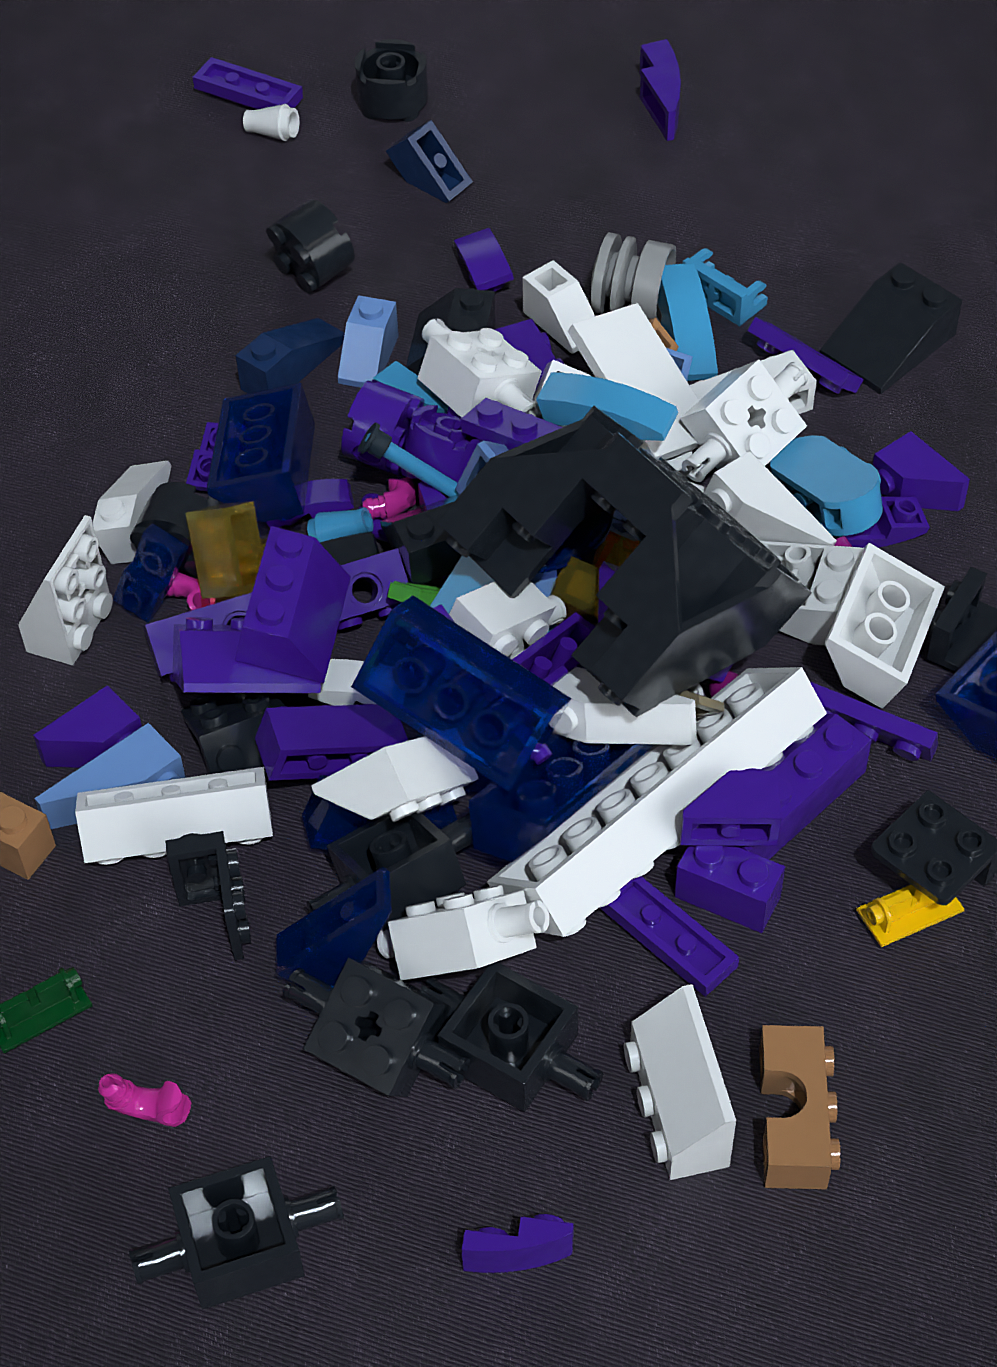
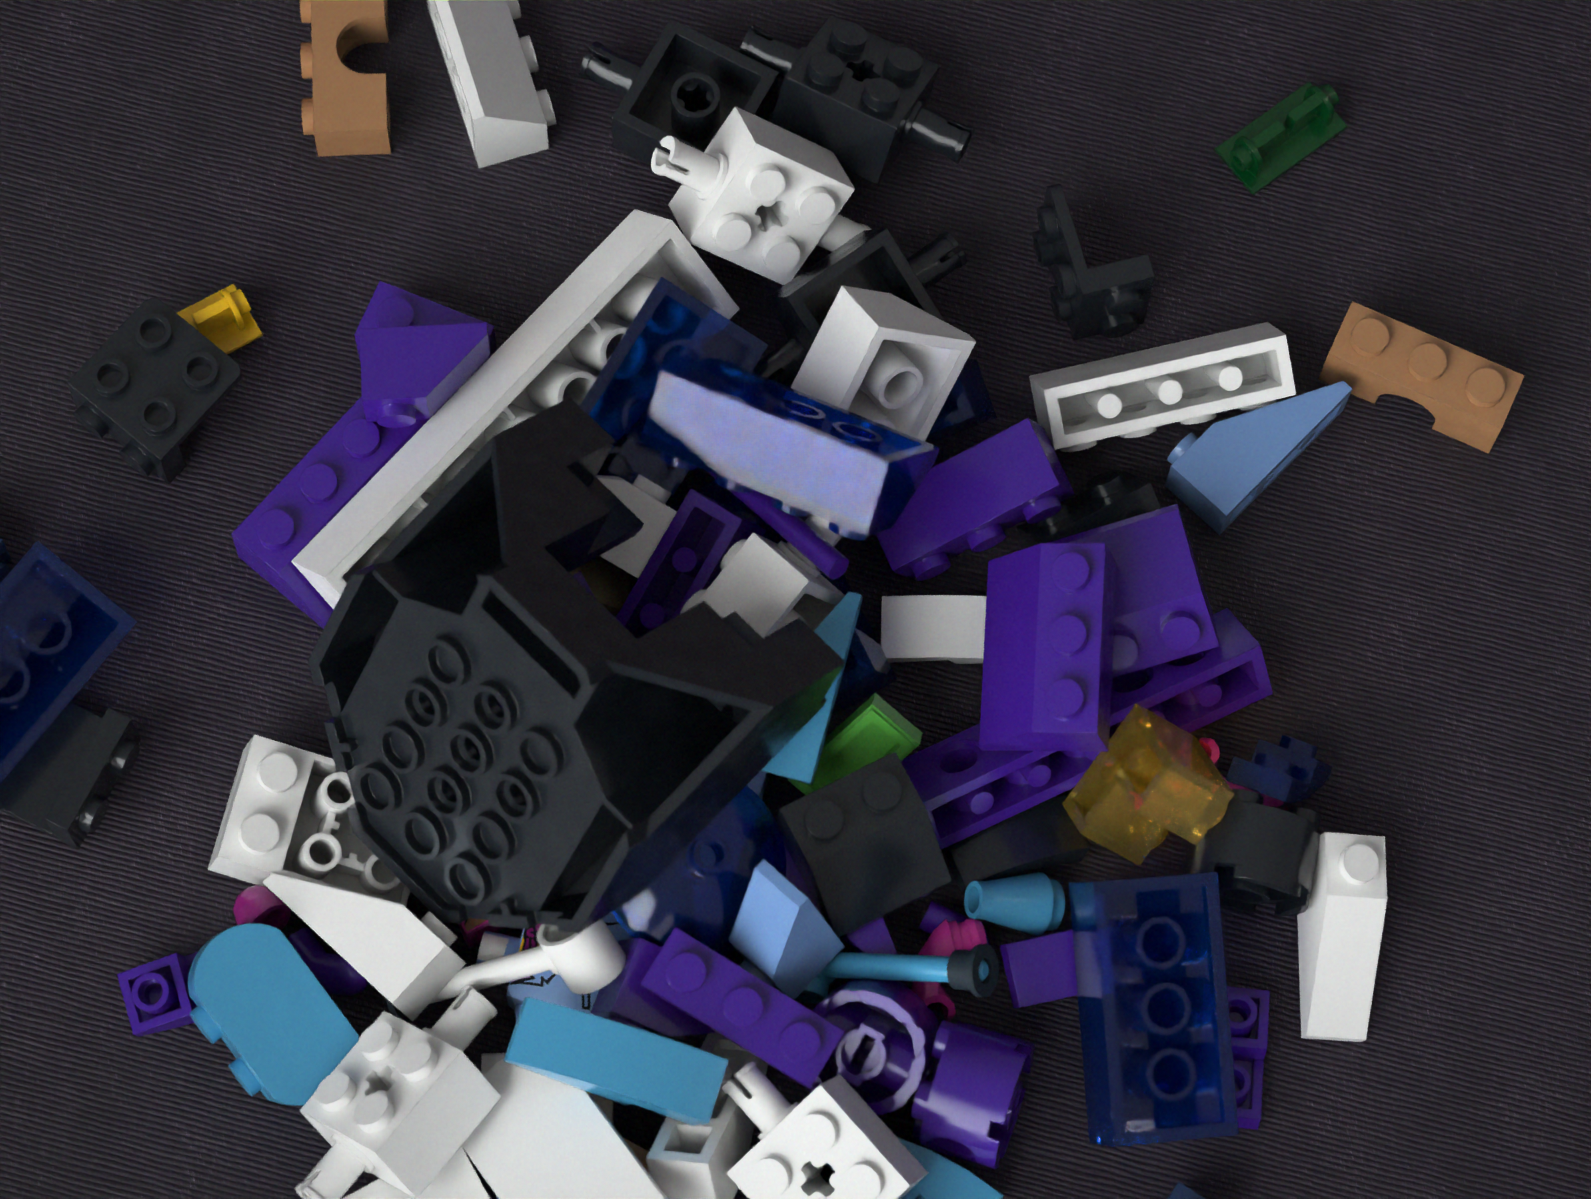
camera: 170 degrees right, 20 degrees up
(69, 600) = (1393, 714): white slope -> none
(86, 730) = (1300, 524): dark purple slope -> none
(159, 1105) = (1106, 30): dark pink piece -> none
(336, 930) = (922, 190): clear blue slope -> none
(672, 935) = (485, 264): dark purple plate -> none
(881, 625) = (198, 734): white slope -> none
(906, 737) = (228, 604): dark purple plate -> none
(915, 469) = (133, 1070): dark purple slope -> none

